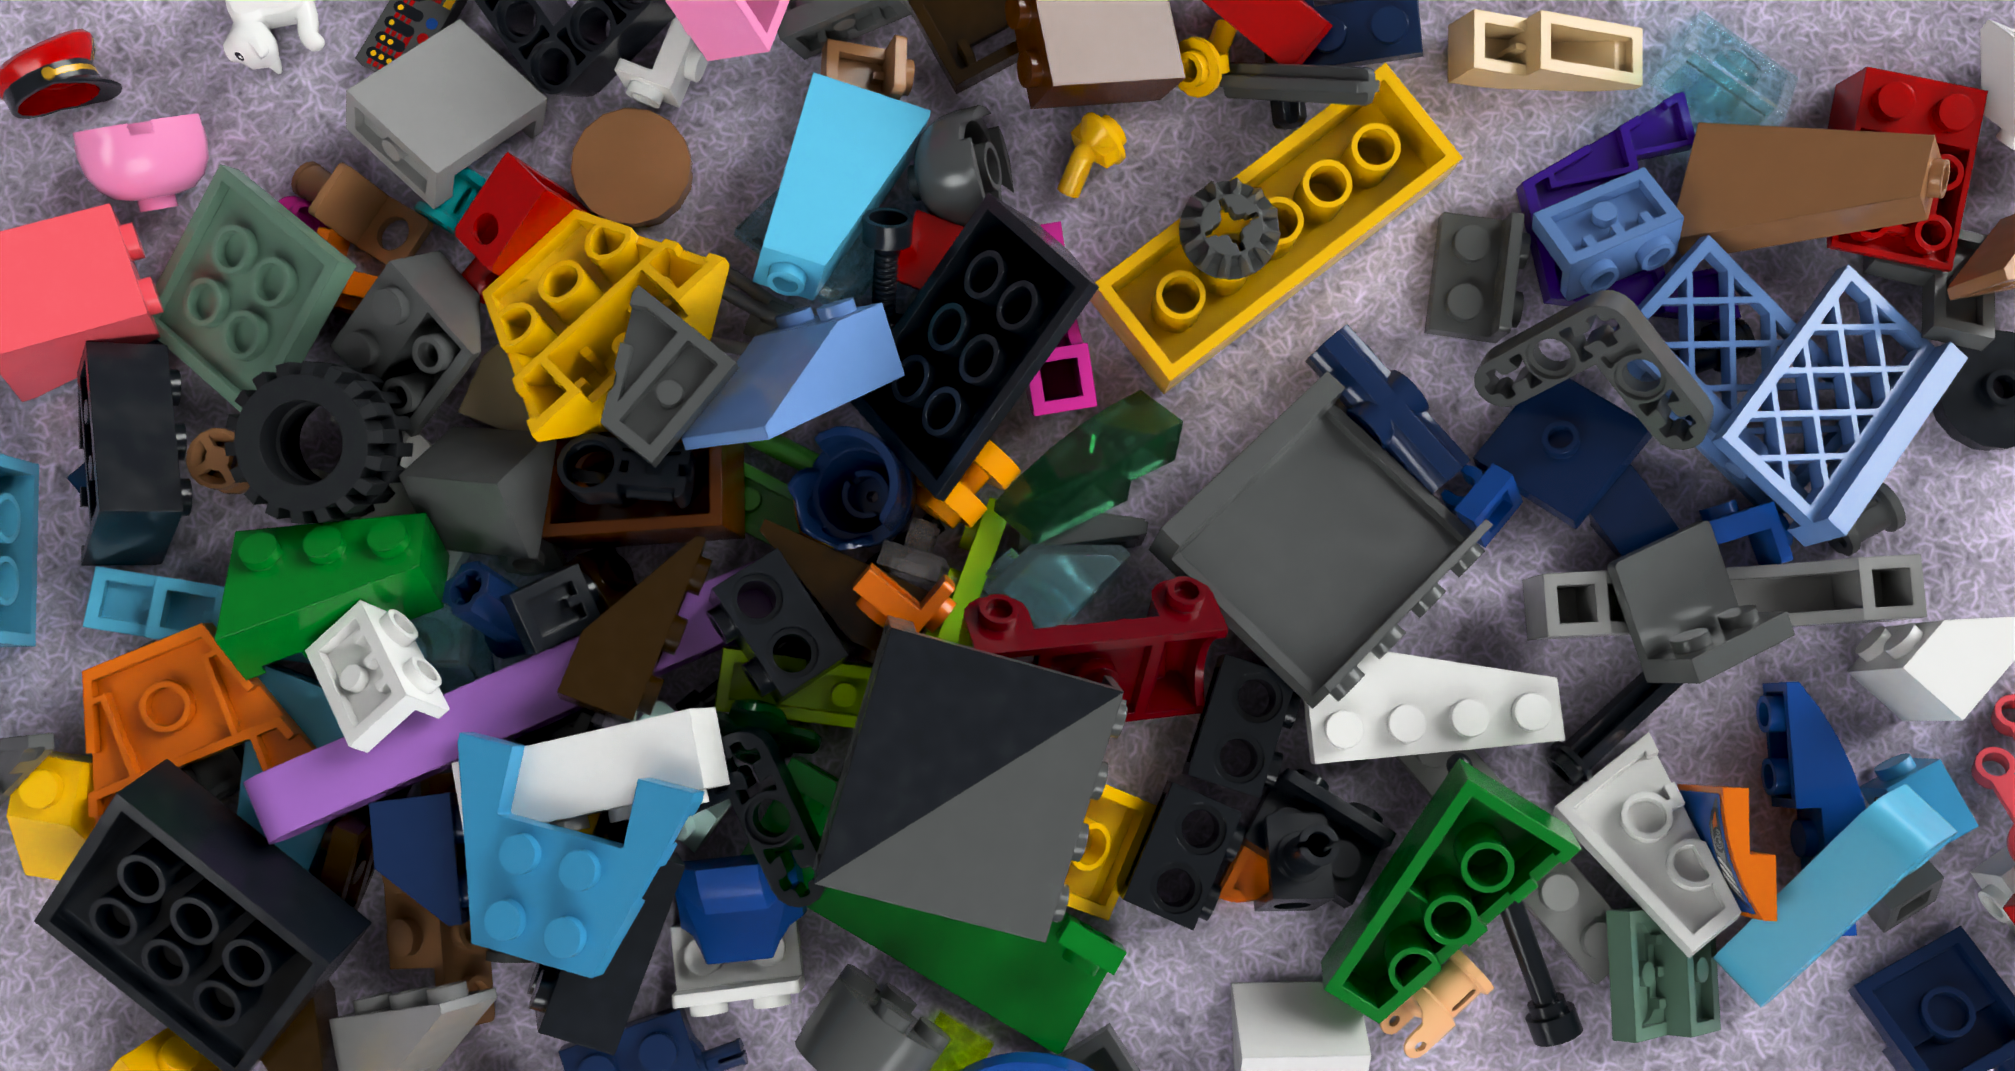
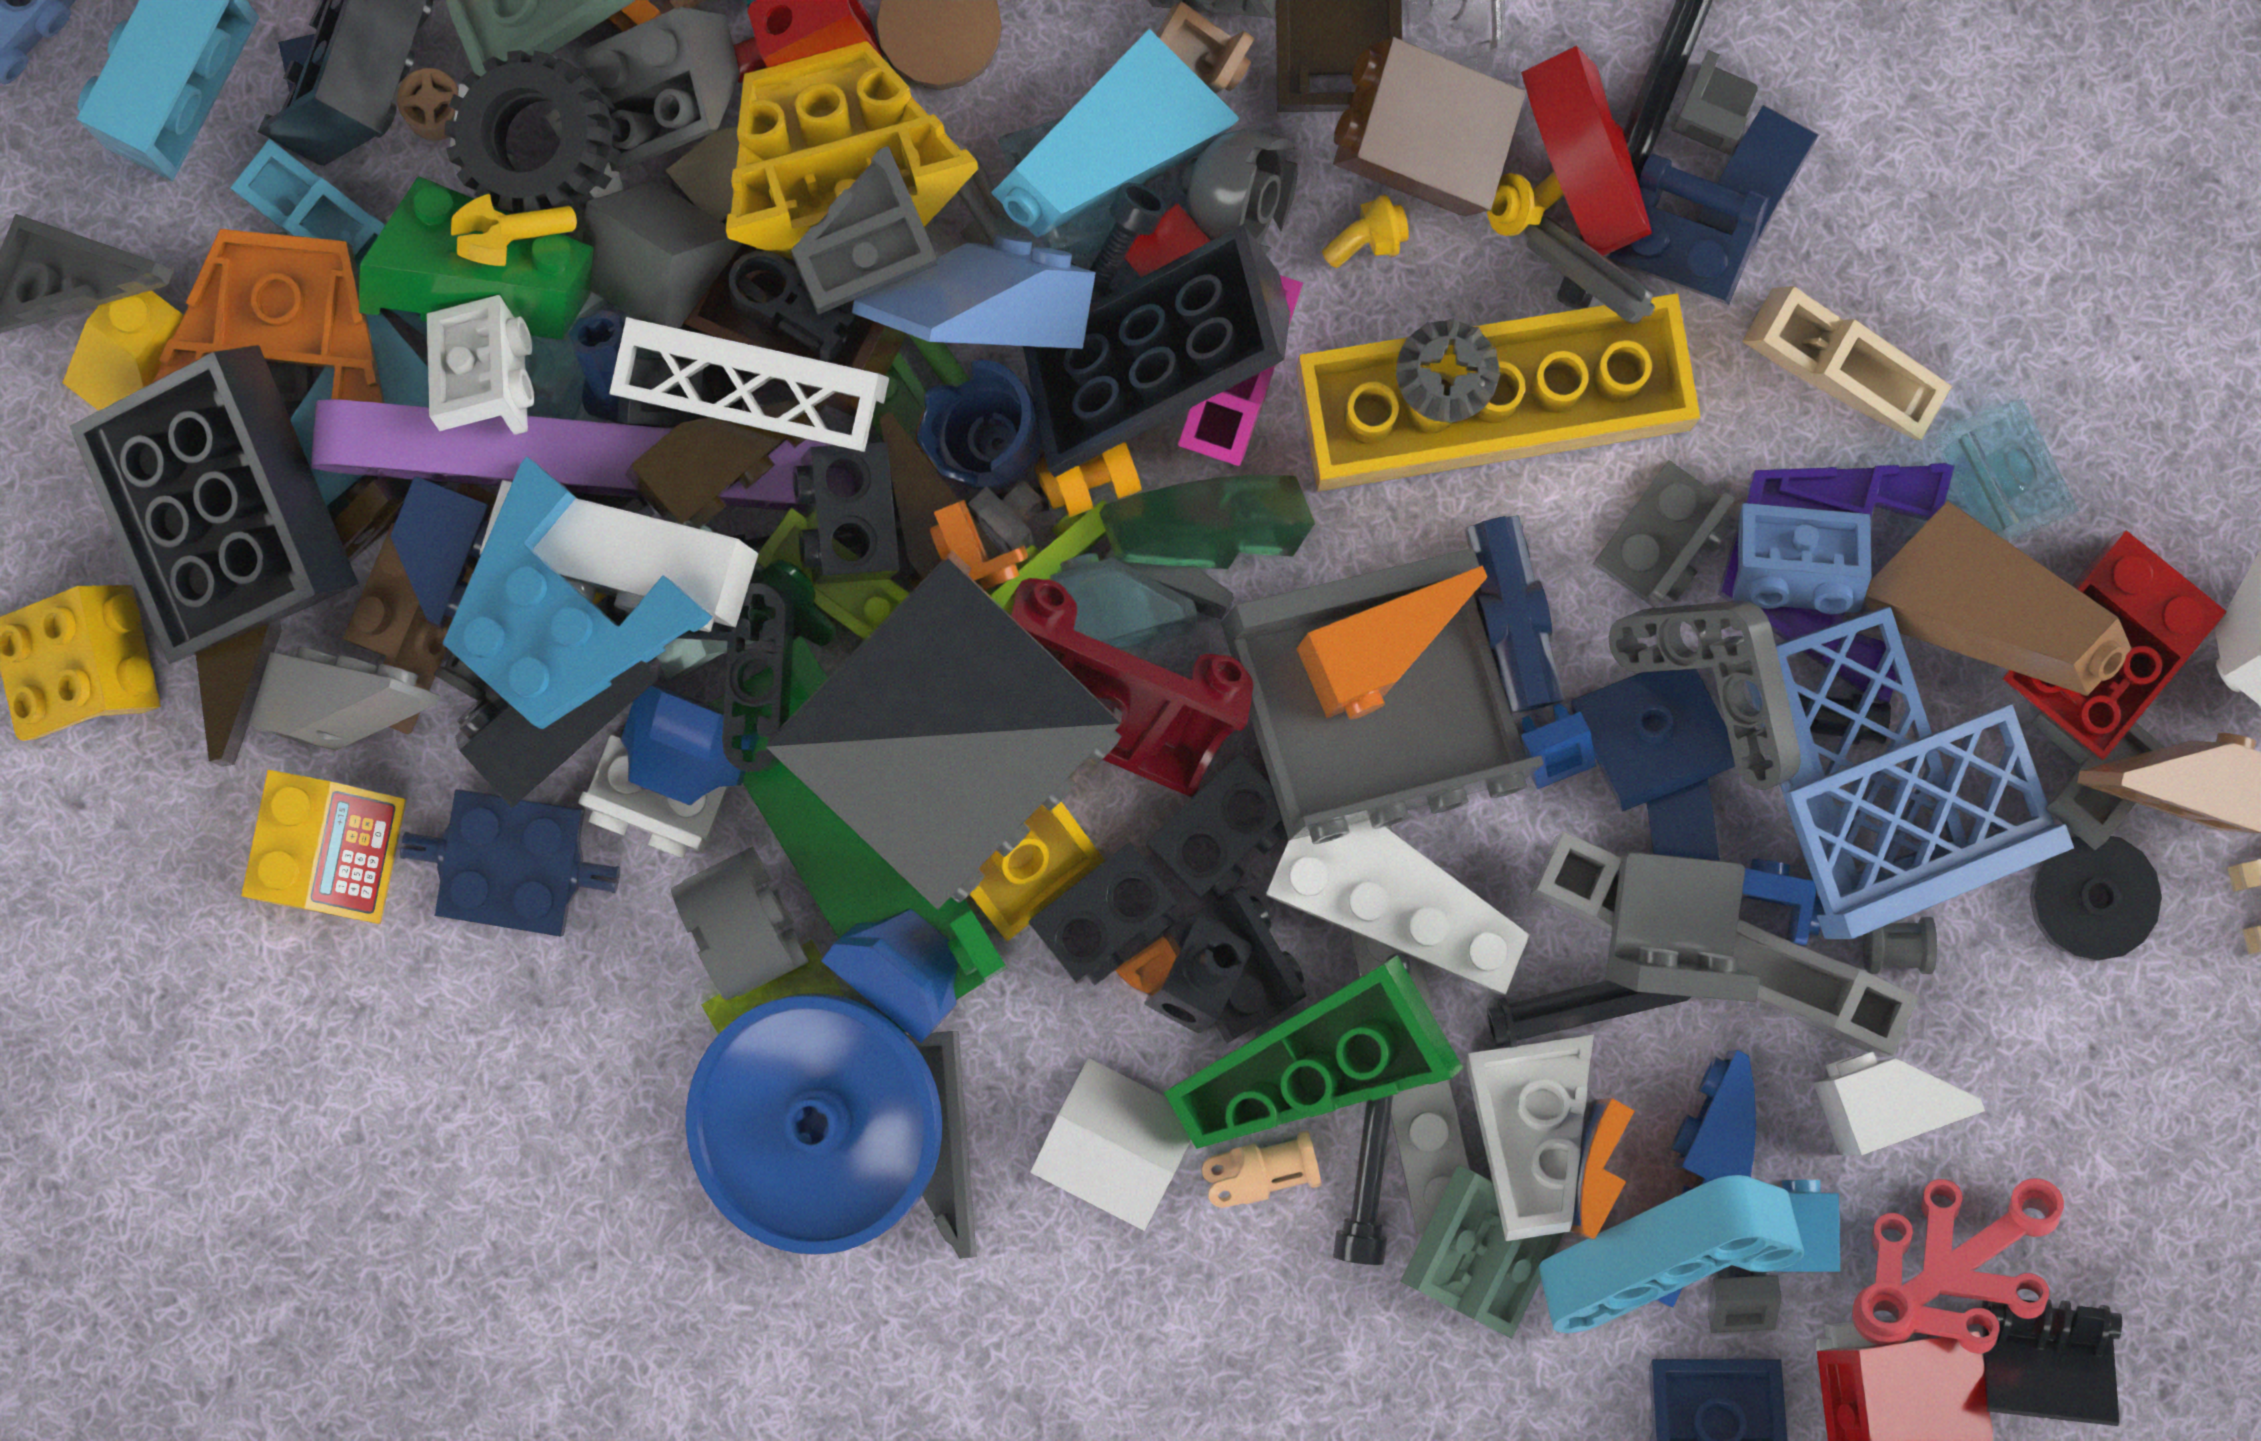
camera: 30 degrees right, 0 degrees up
(330, 540) = (502, 229): none -> yellow bar
(615, 539) = (751, 359): none -> white fence
(1033, 1003) = (900, 969): none -> blue slope
(1302, 498) = (1368, 652): none -> orange slope

